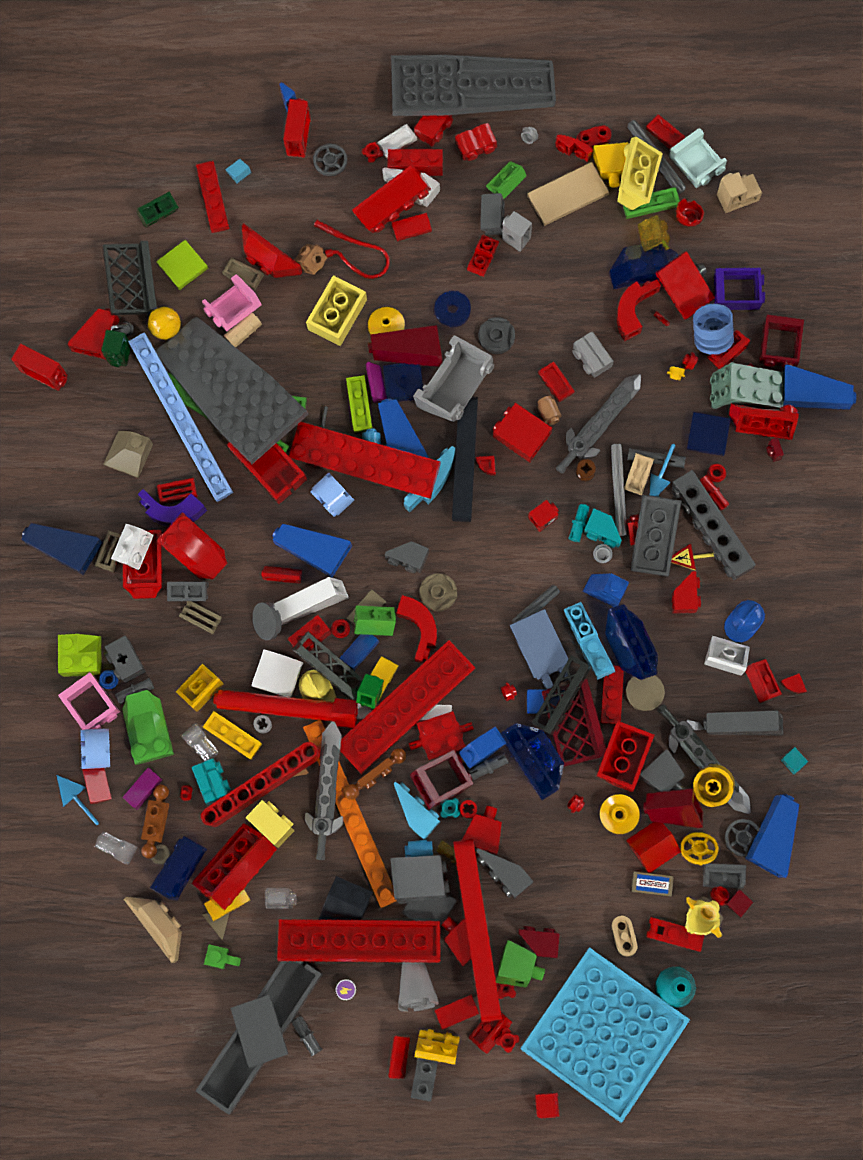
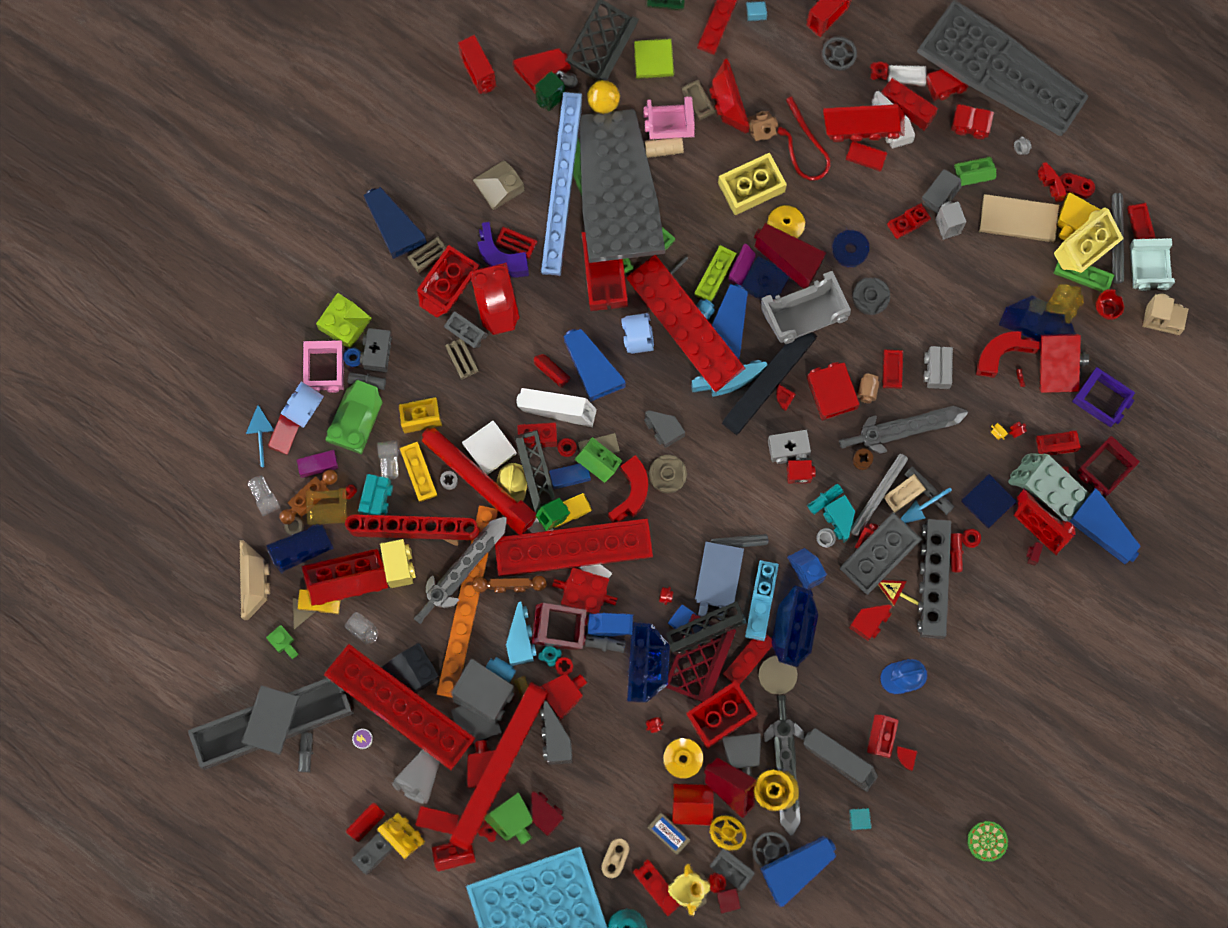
camera: 30 degrees right, 0 degrees up
(132, 546) = (446, 263): white bracket -> none
(179, 824) = (329, 512): none -> clear yellow plate
(266, 620) = (511, 399): dark grey tile -> none
(510, 507) = (797, 440): none -> light grey brick
(513, 1039) = (460, 877): red plate -> none
(713, 328) = (1056, 416): medium blue wheel -> none
(727, 655) = (867, 694): white slope -> none

